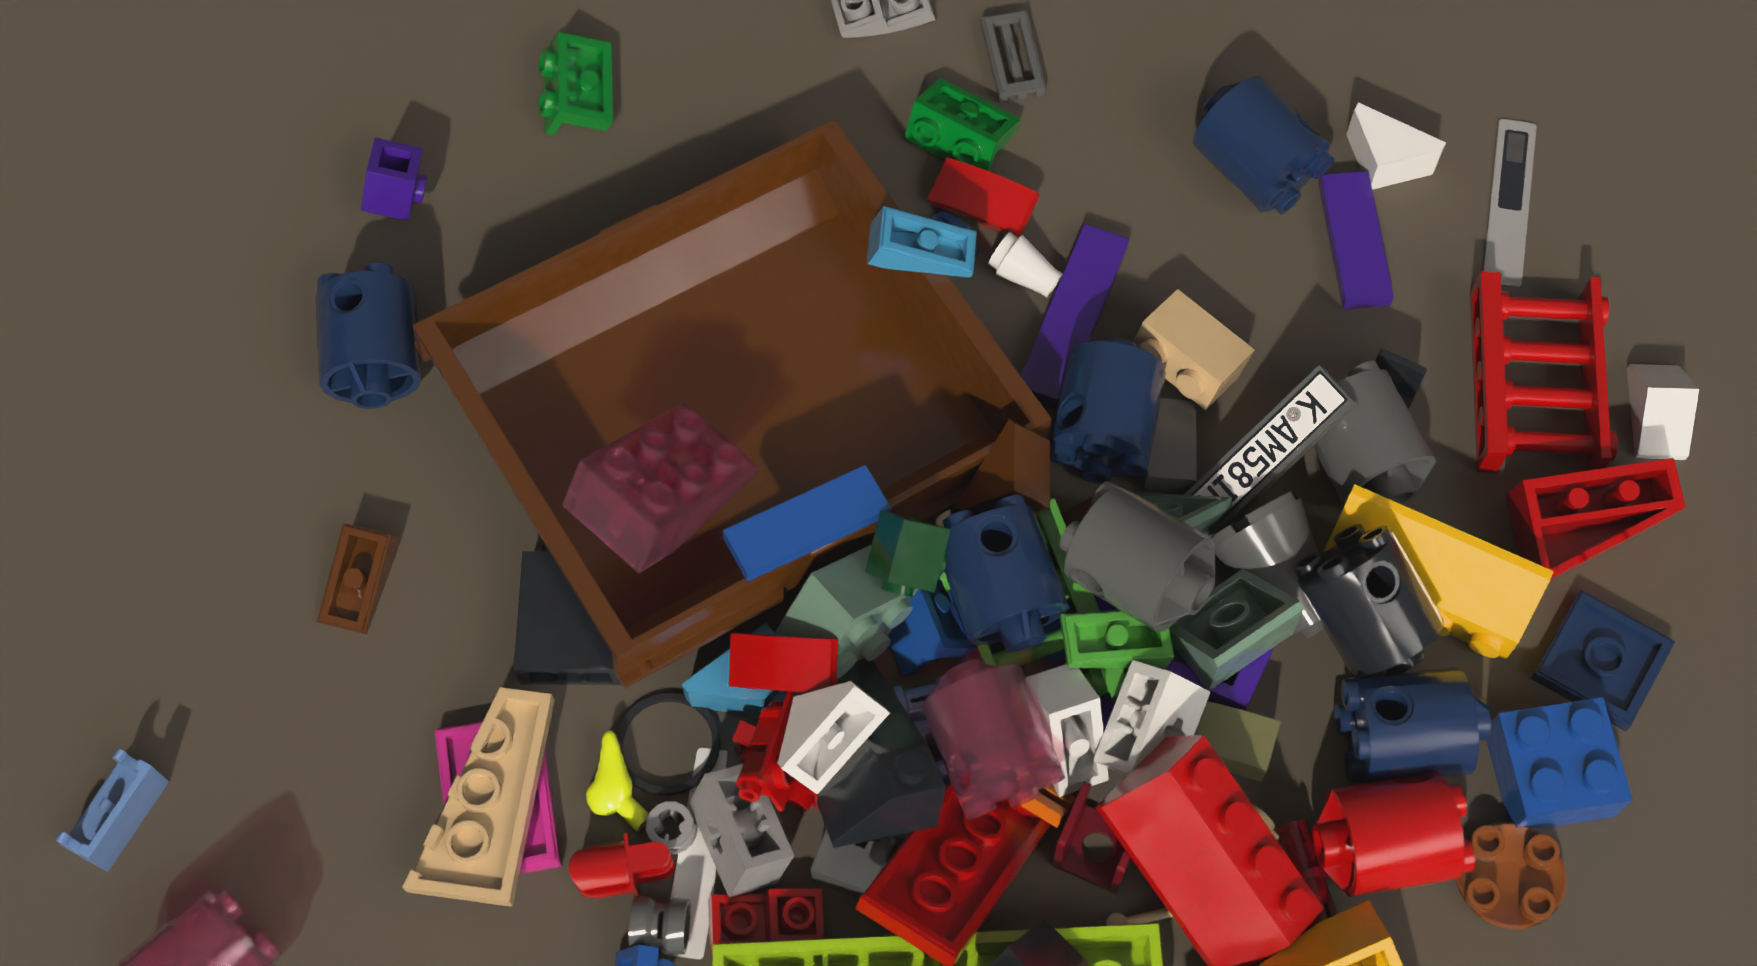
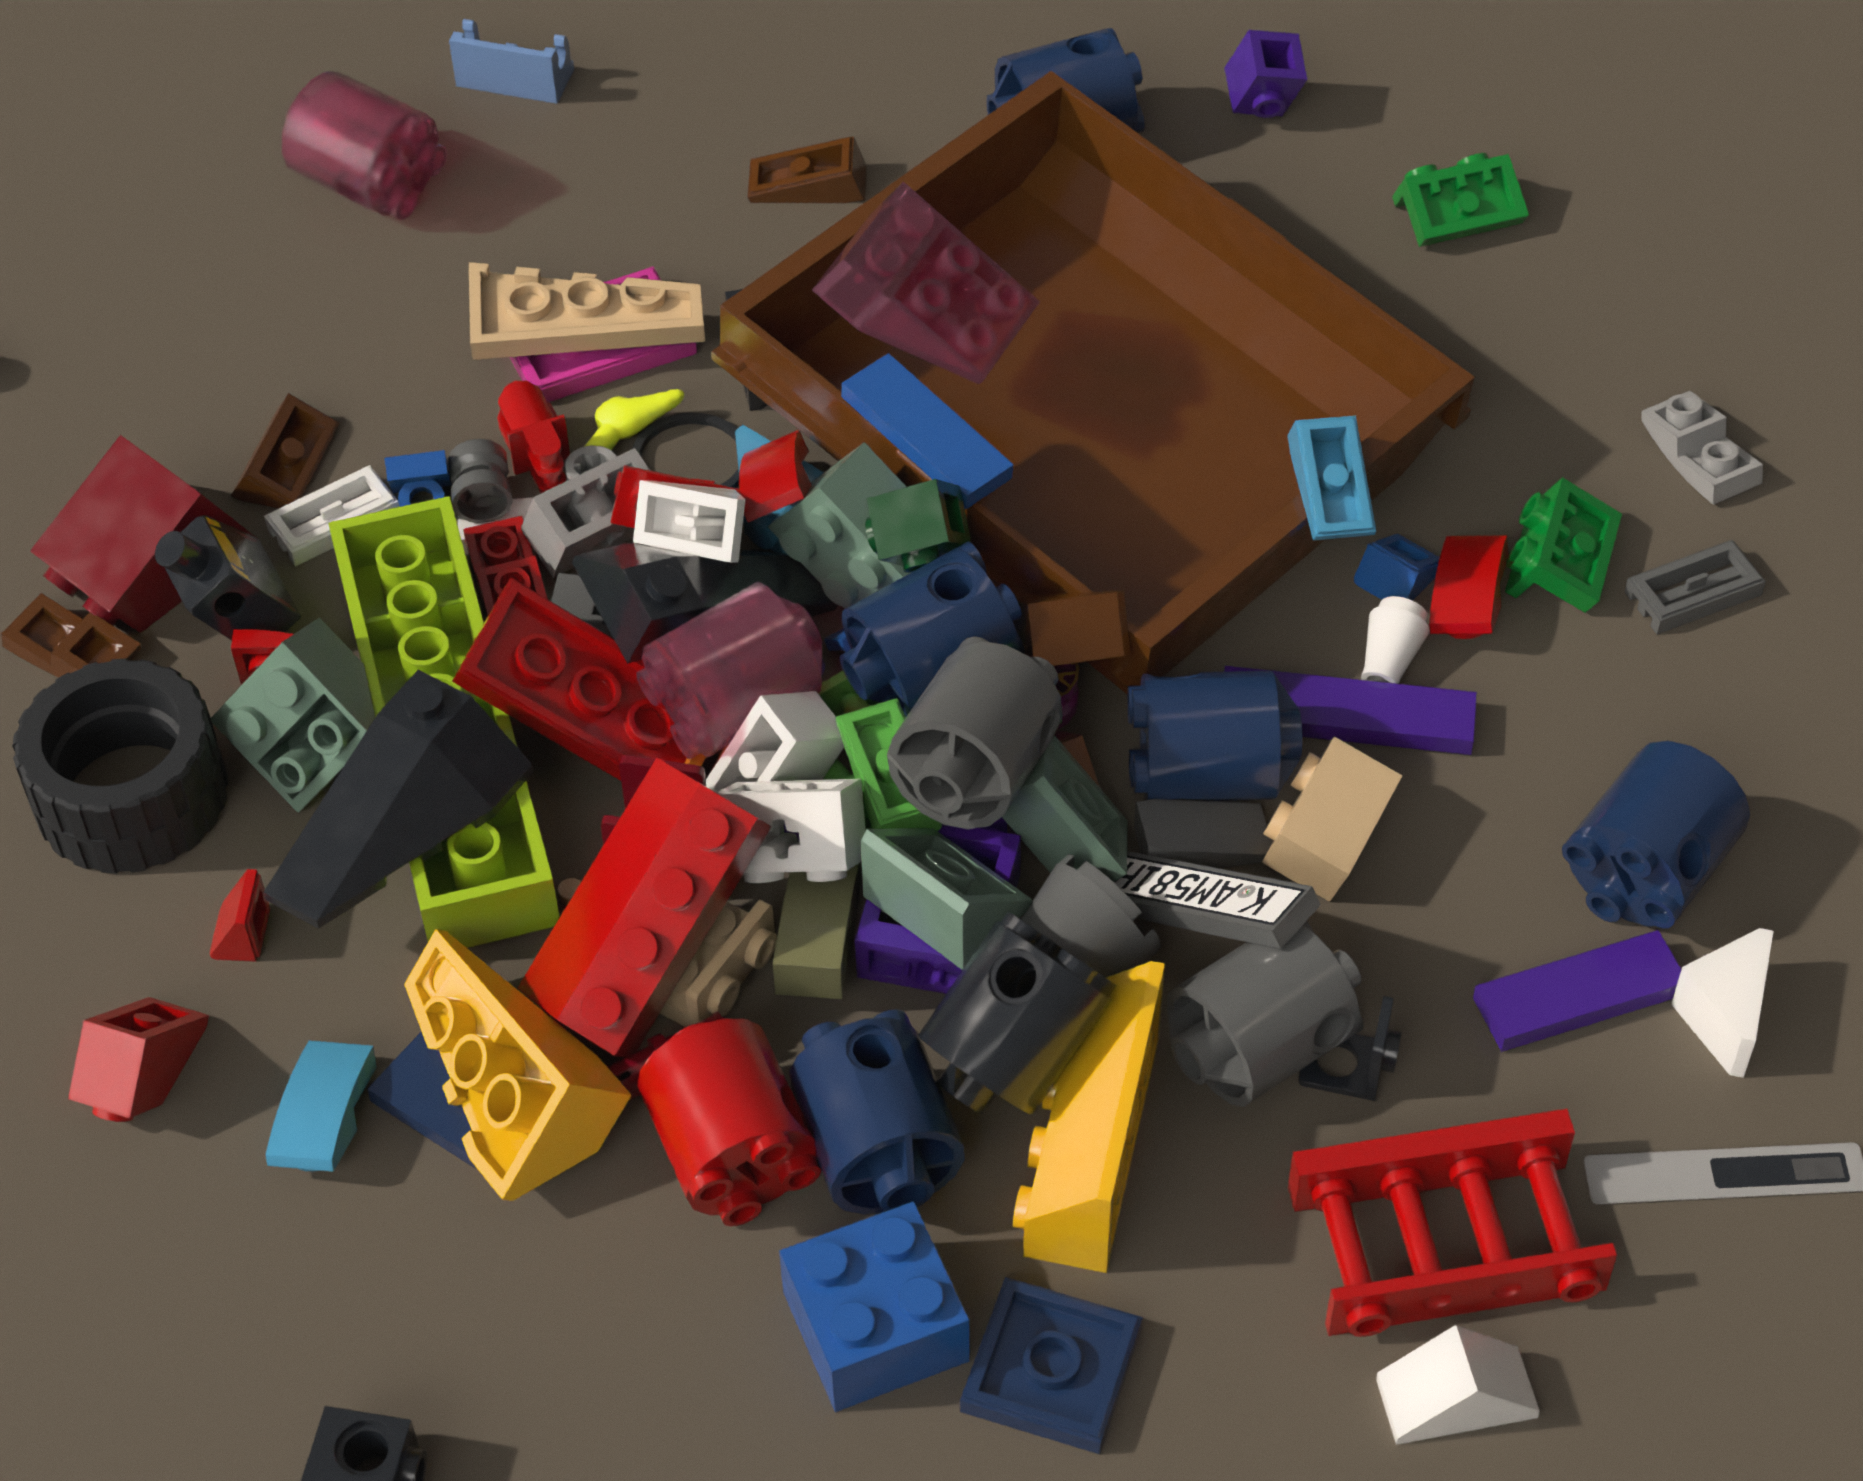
camera: 75 degrees right, 15 degrees down
(1515, 876) = (717, 1284): dark orange dish -> none
(1586, 513) = (1242, 1294): red wedge -> none

